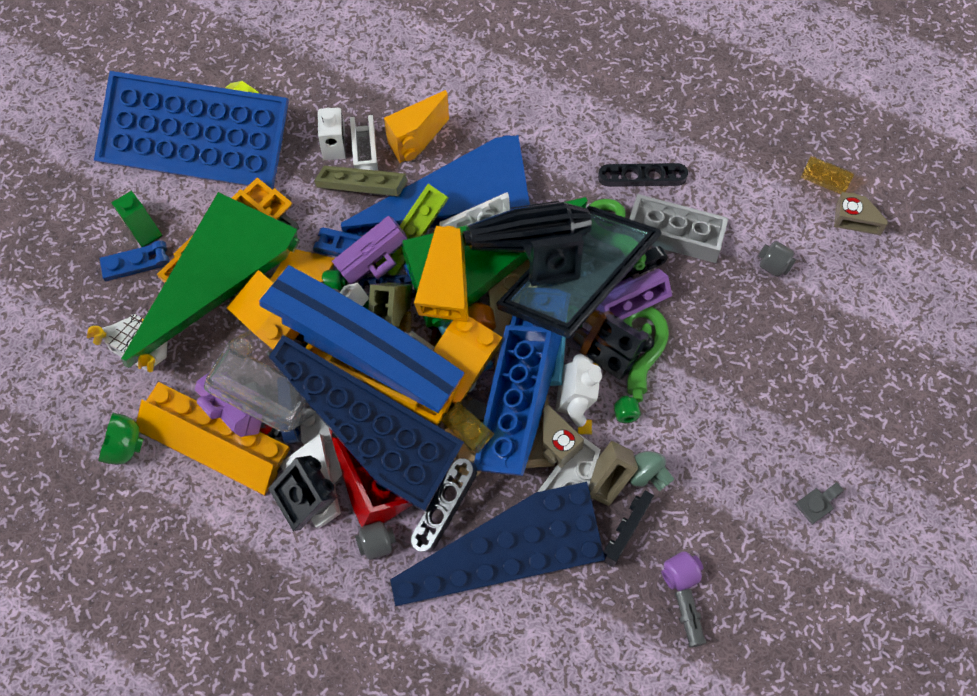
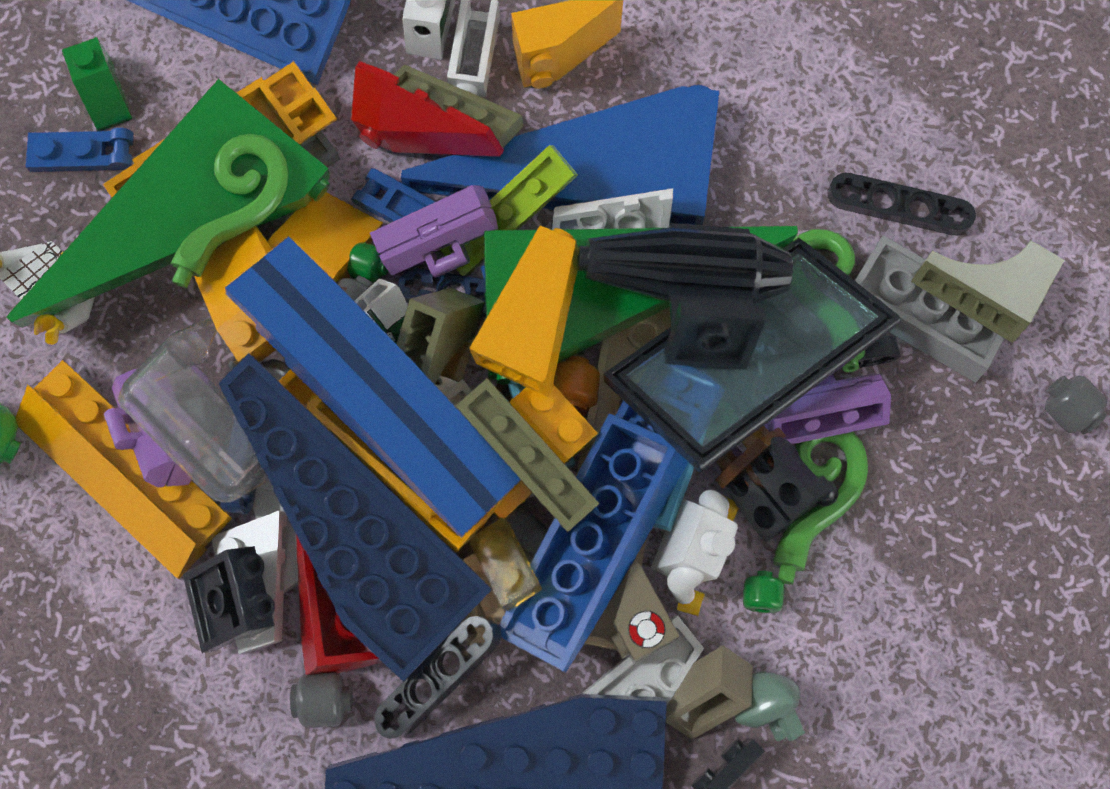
camera: 15 degrees right, 10 degrees up
(232, 287) = (200, 244): none -> bright green plant
(340, 193) = (413, 122): none -> red wedge
(465, 356) = (527, 454): none -> olive plate
(711, 208) = (996, 294): none -> arch

